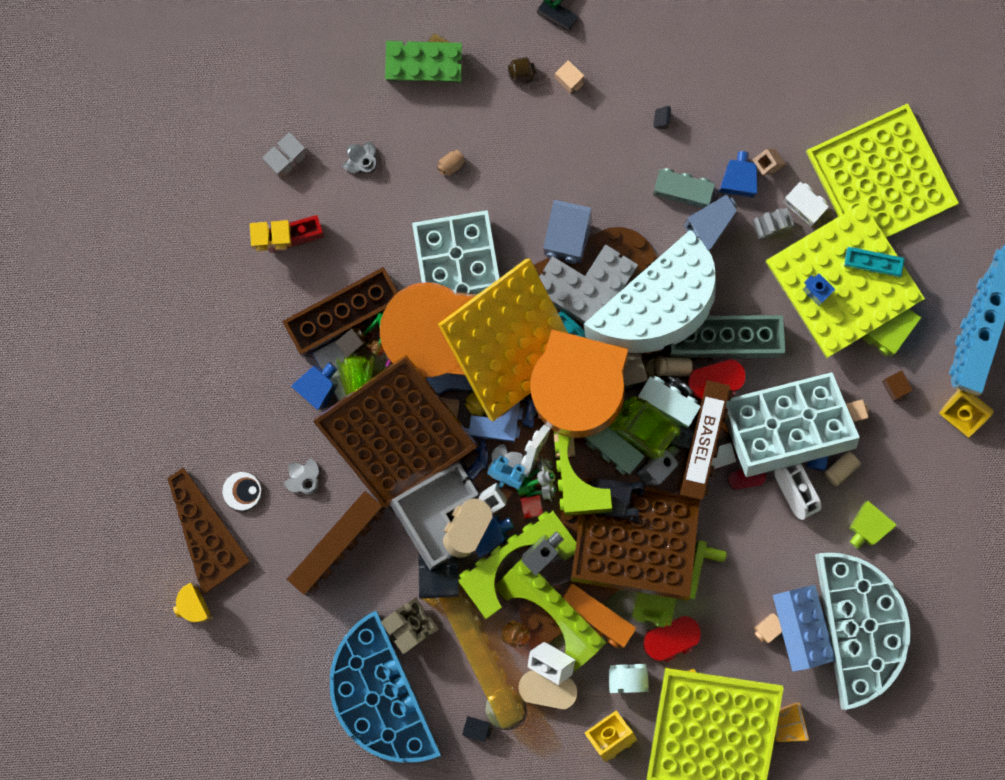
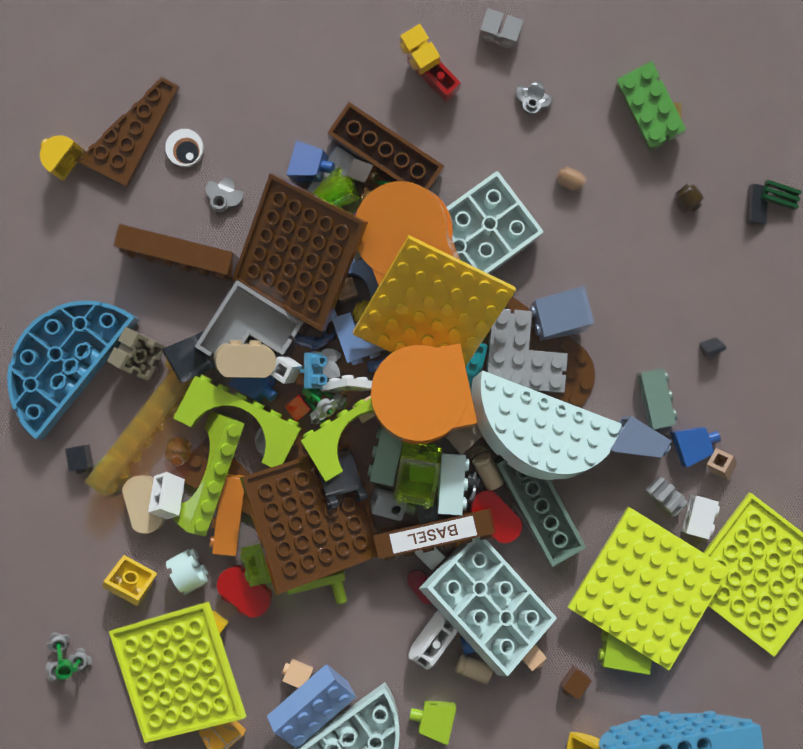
camera: 65 degrees right, 5 degrees up
(536, 558) = (253, 438): dark grey torso -> none
(569, 77) = (705, 244): light nougat brick -> none
(818, 288) = (627, 569): blue brick -> none
(874, 262) = (679, 607): teal tile -> none

